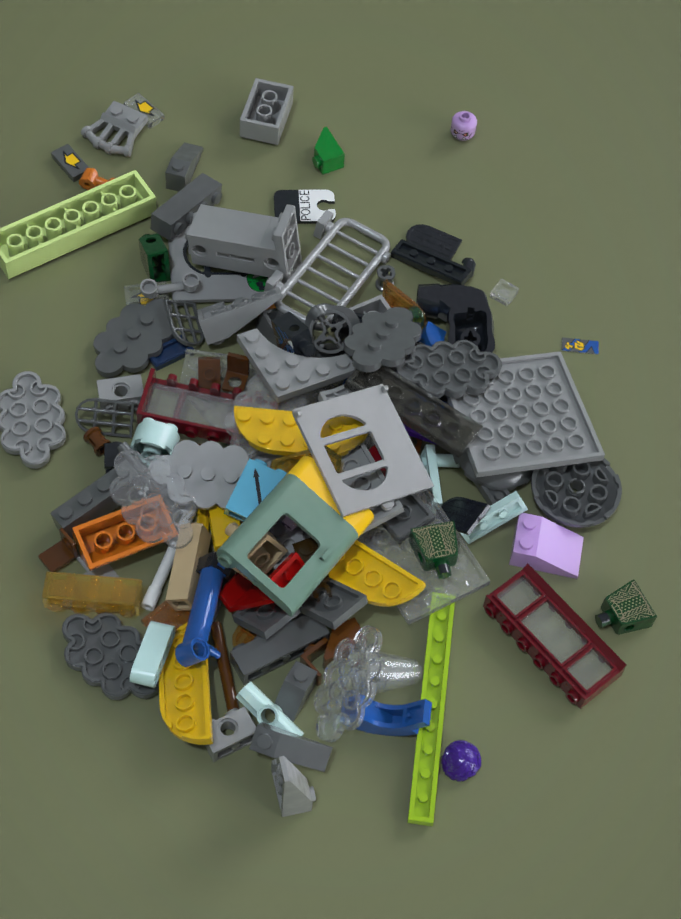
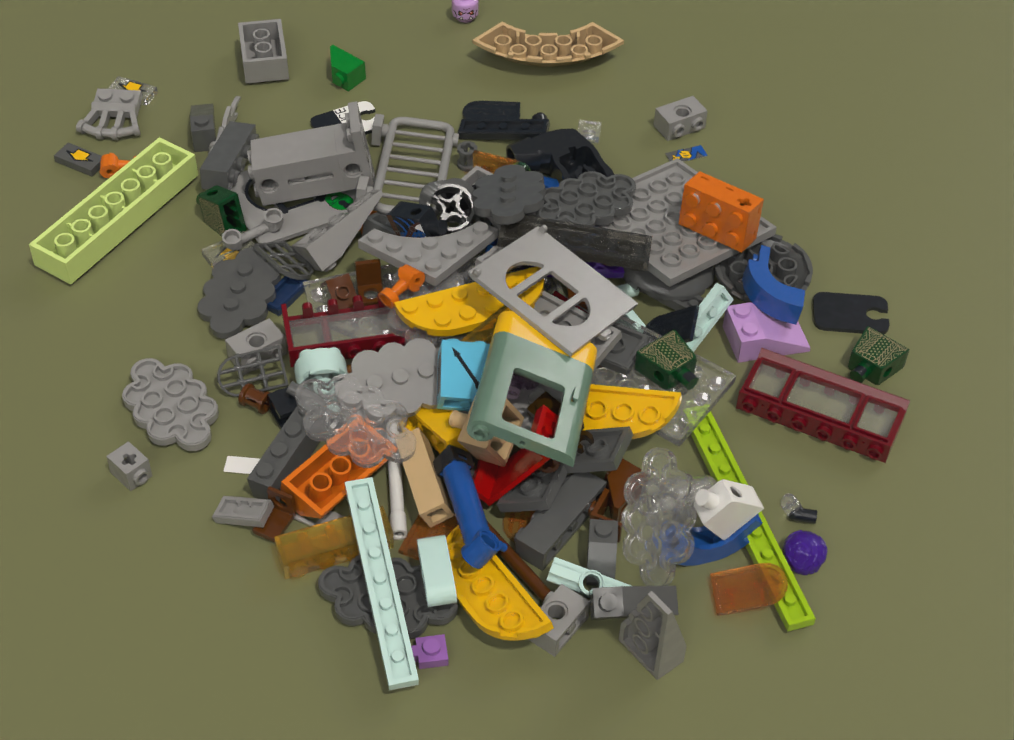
camera: 20 degrees left, 10 degrees down
(38, 537) = (243, 511): none -> light grey plate
(59, 493) = (240, 464): none -> white sticker
(104, 646) = (381, 585): none -> light aqua plate
(117, 717) = (430, 651): none -> medium lavender plate
(206, 167) = (229, 115): none -> light grey piece
(257, 388) = (409, 278): none -> orange leg
(395, 772) = (748, 587): none -> clear orange window
(403, 700) = (727, 507): none -> white torso
(475, 722) = (795, 510): none -> arm
(512, 197) = (548, 48): none -> tan brick
(554, 426) = (720, 211): none -> orange piece
(560, 518) = (768, 293): none -> blue arch
(592, 309) = (680, 118): none -> light grey brick
(629, 557) = (848, 312): none -> black piece

